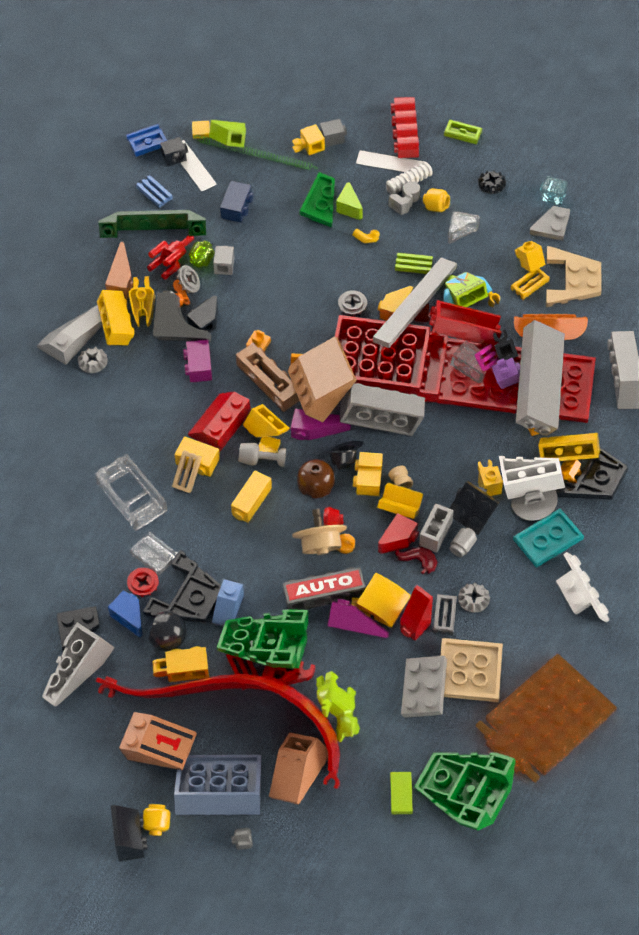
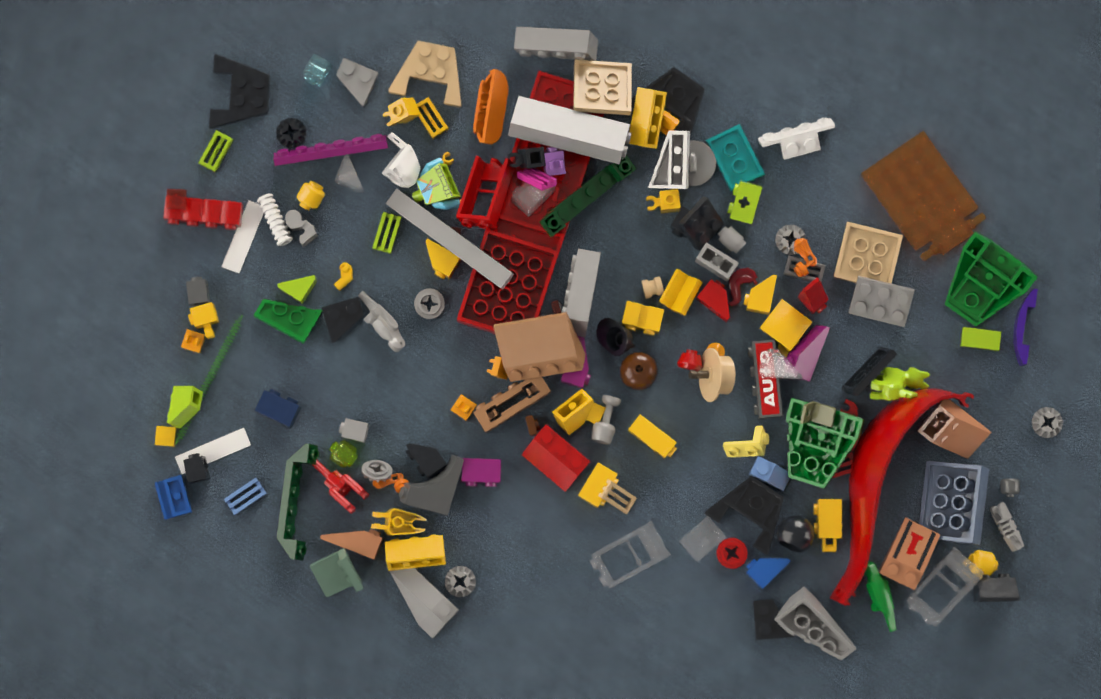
camera: 80 degrees left, 25 degrees up
(90, 261) = (336, 573): none -> sand green bracket
(106, 761) = (962, 567): none -> clear door
(112, 719) = (880, 594): none -> green animal
(197, 842) = (1007, 526): none -> light grey hinge
(249, 392) = (532, 425): none -> reddish brown plate
(254, 585) = (748, 448): none -> light yellow bracket
(287, 136) = (193, 341): none -> light orange tile
(295, 634) = (818, 413): none -> olive bracket
(319, 881) = (1046, 431): none -> light grey gear
(326, 267) = (383, 323): none -> light grey animal
(328, 238) = (342, 316): none -> black wing
(337, 585) = (777, 366): none -> clear slope
(347, 678) = (869, 371): none -> black tile
(409, 573) = (761, 296): none -> yellow slope
(411, 99) = (176, 199): none -> clear red plate
(450, 834) = (1022, 350): none -> dark purple slope
(465, 603) = (802, 247): none -> orange piece
(475, 404) = (585, 195): none -> dark green slope
(478, 260) = (404, 167): none -> white piece
(483, 212) = (325, 150): none -> magenta plate
(503, 547) = (746, 213): none -> lime brick
(519, 147) = (248, 93): none -> black wing
(591, 407) = (602, 87): none -> tan plate

